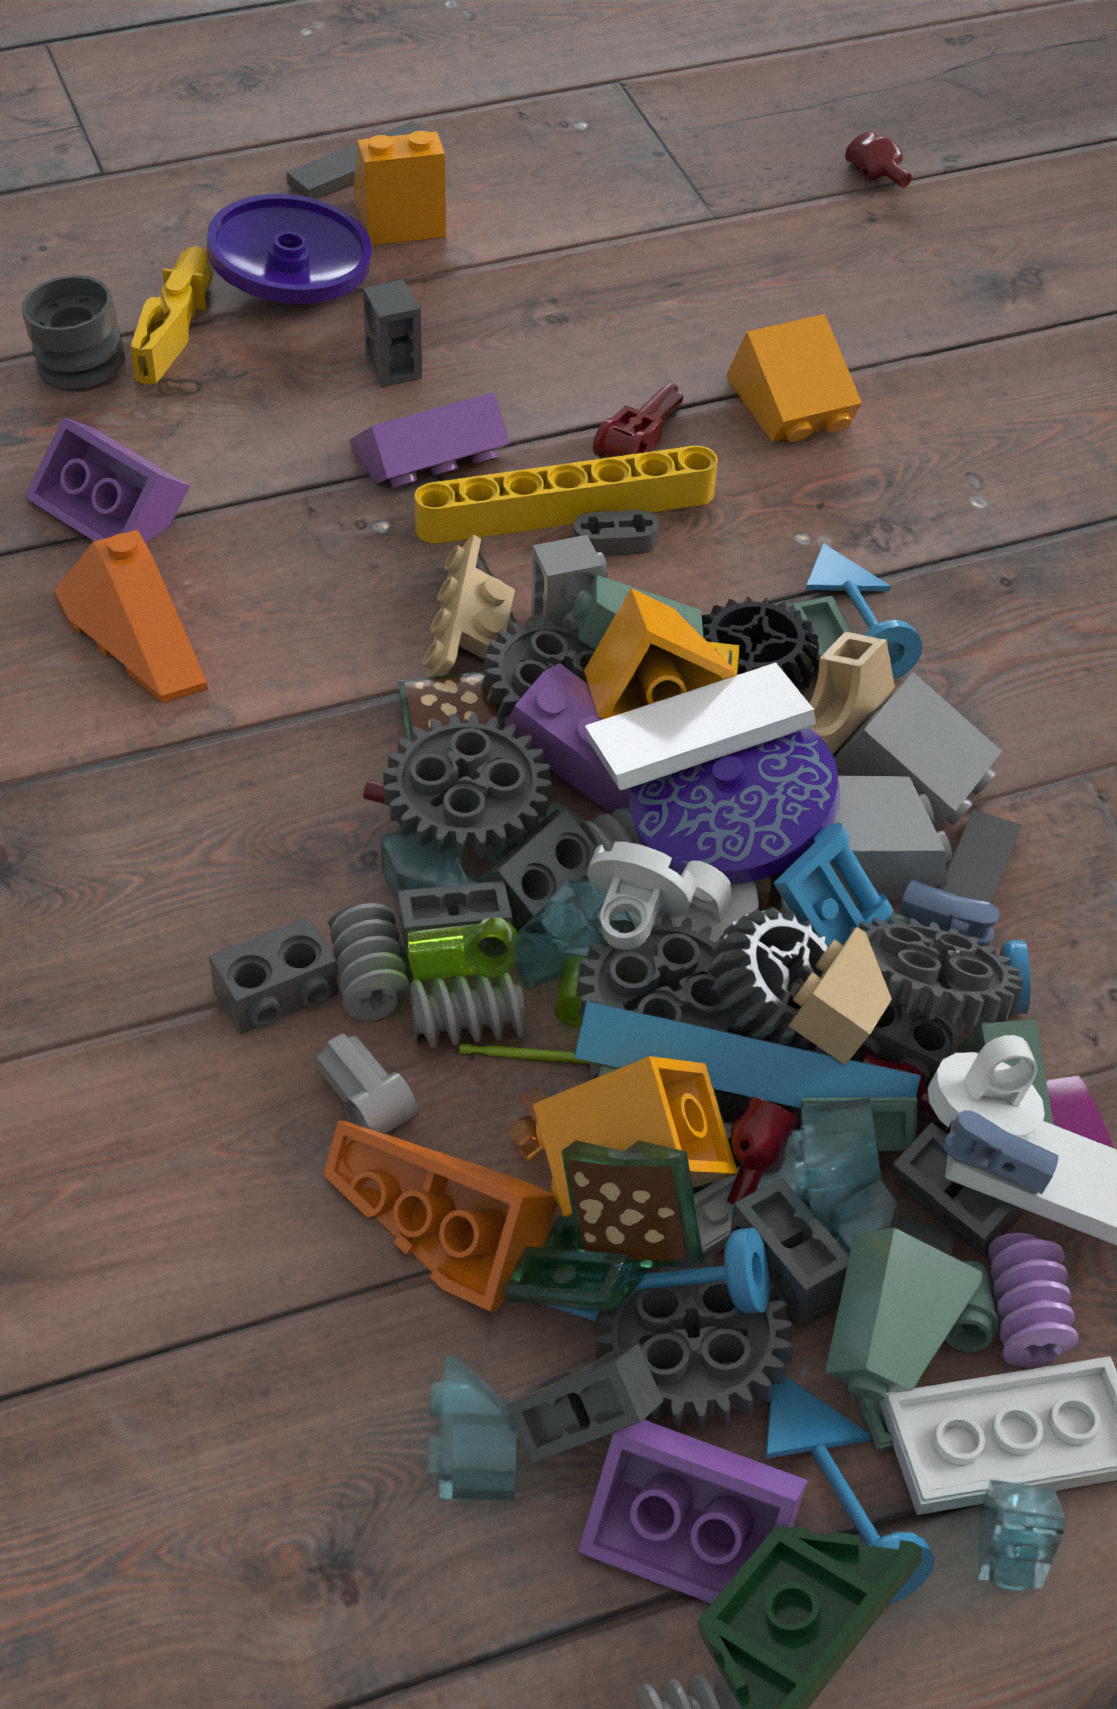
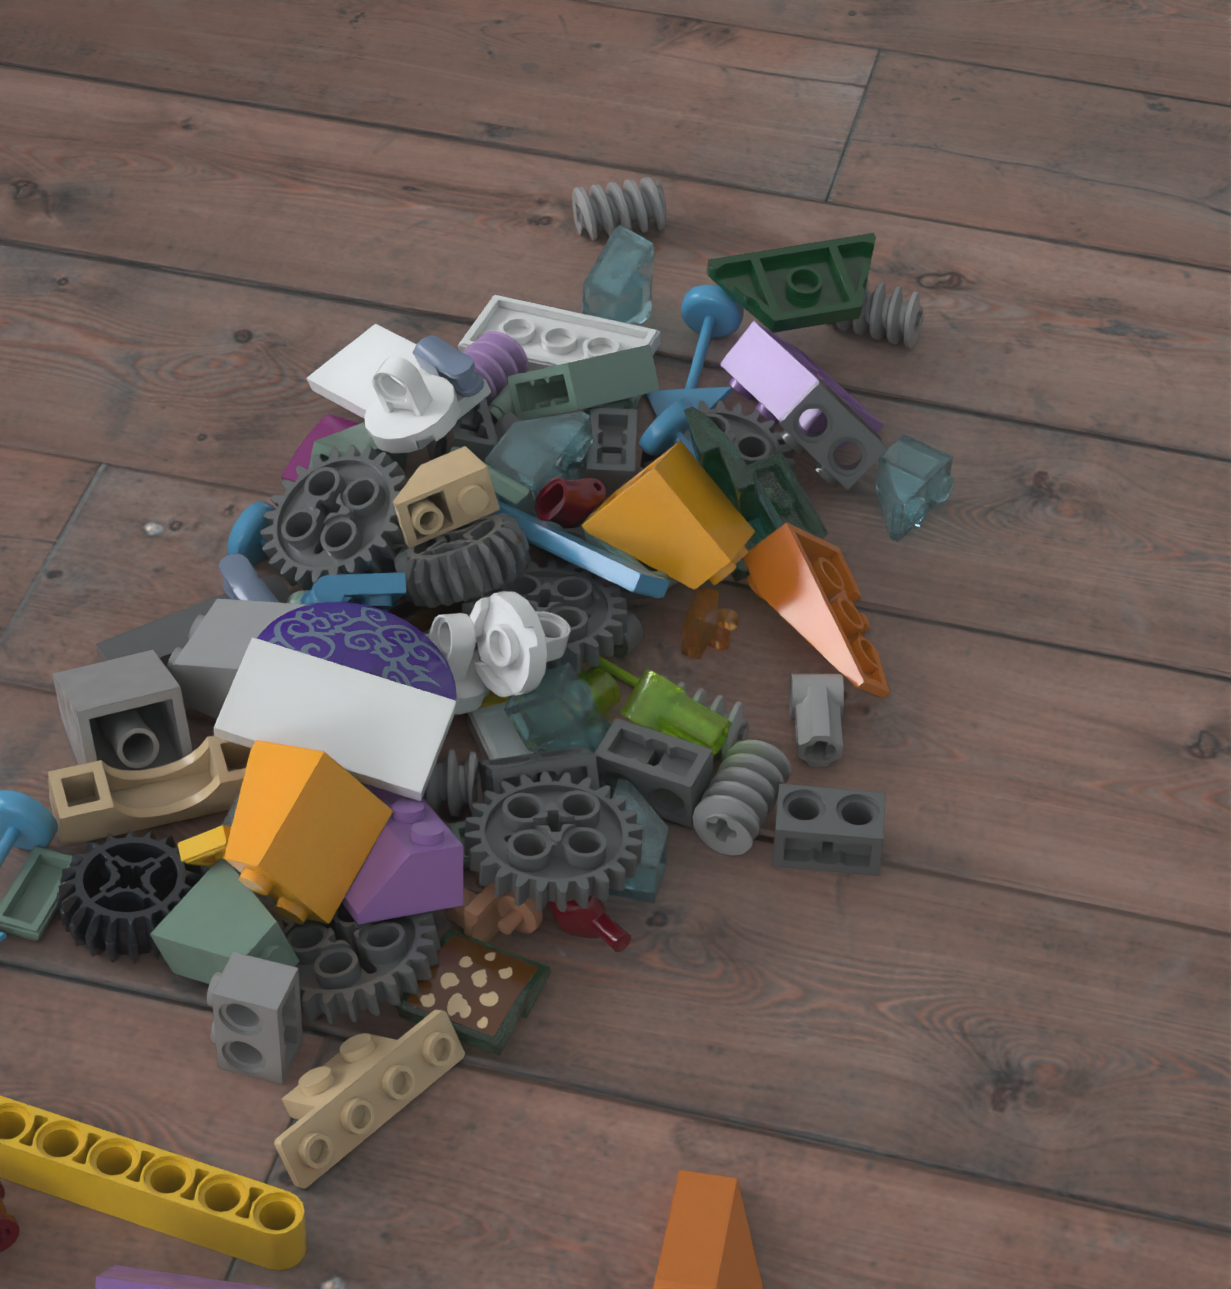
camera: 145 degrees left, 5 degrees down
(616, 531) = (110, 1110): dark grey beam -> none

